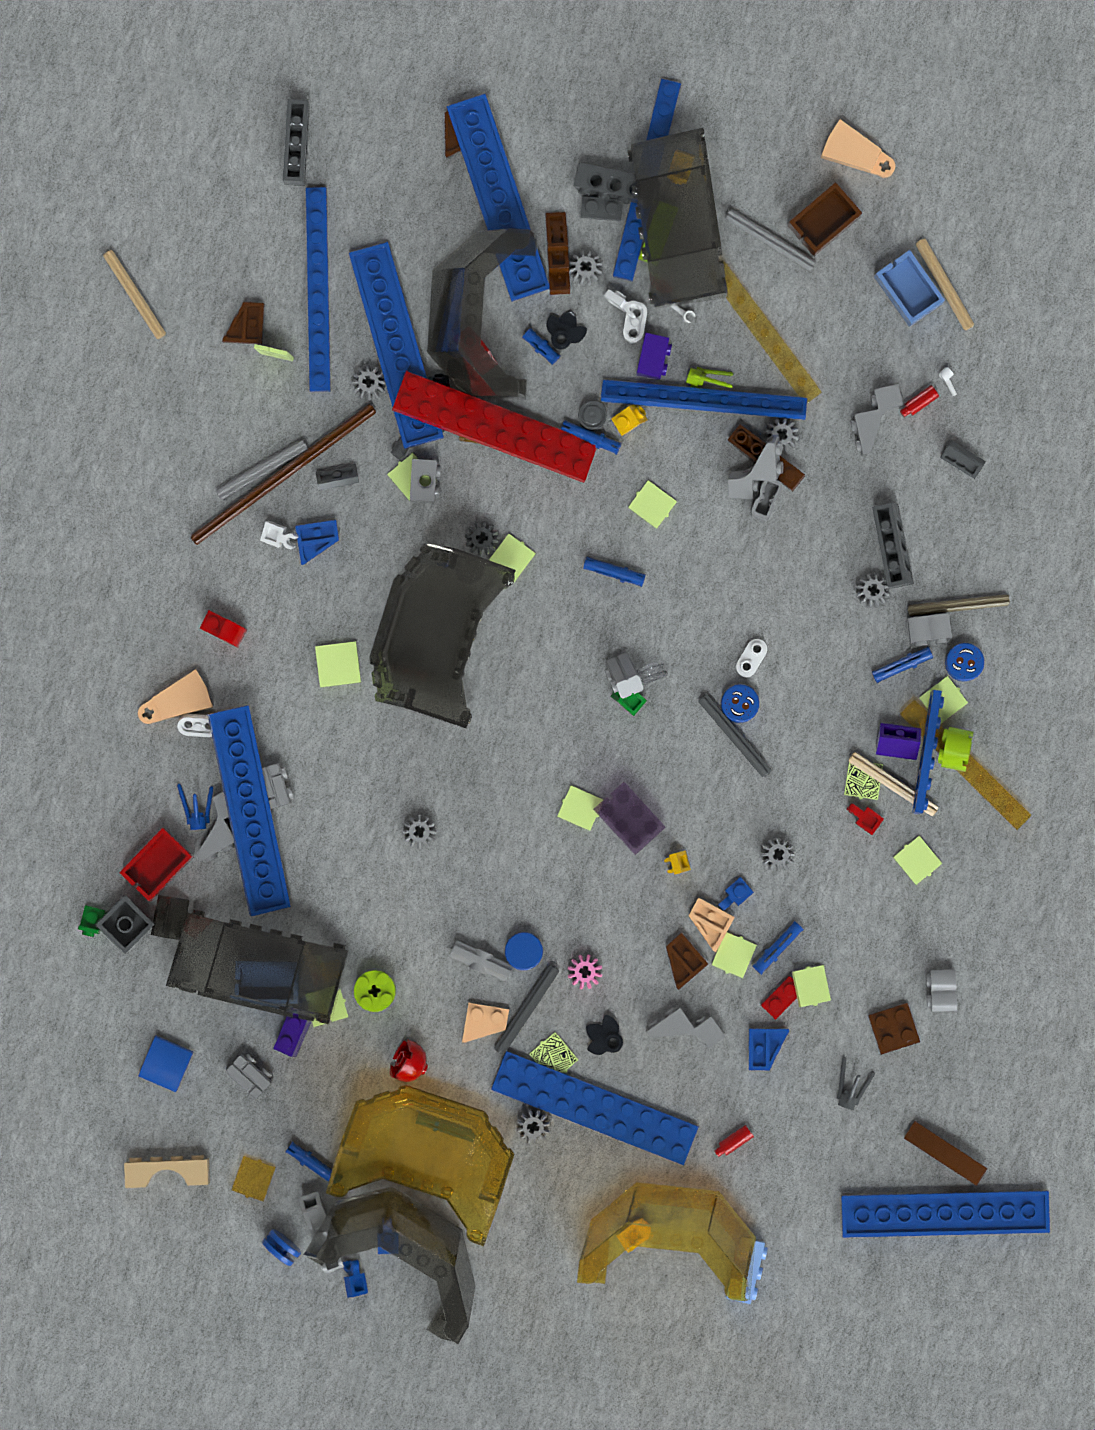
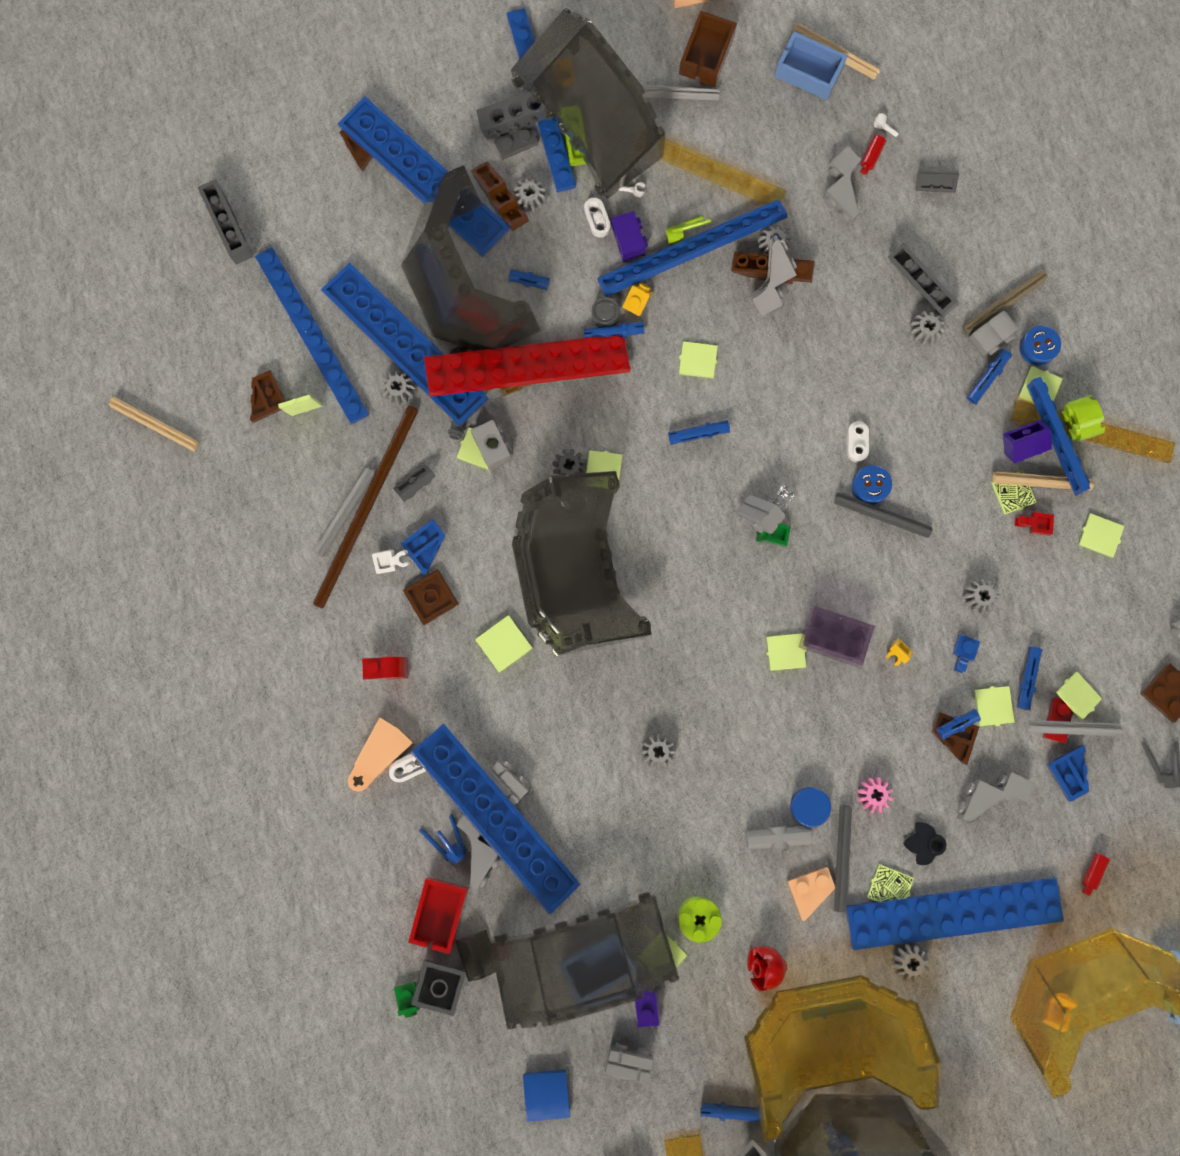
camera: 25 degrees left, 5 degrees down
(296, 587) = (430, 597): none -> reddish brown tile
(565, 327) = (541, 254): black plate -> none
(618, 300) = (574, 206): white plate -> none
(675, 951) = (947, 730): none -> blue pin
(710, 922) = (959, 688): light nougat wing -> none
(764, 503) = (793, 299): light grey brick -> none
(787, 1009) = (1079, 728): none -> light grey axle

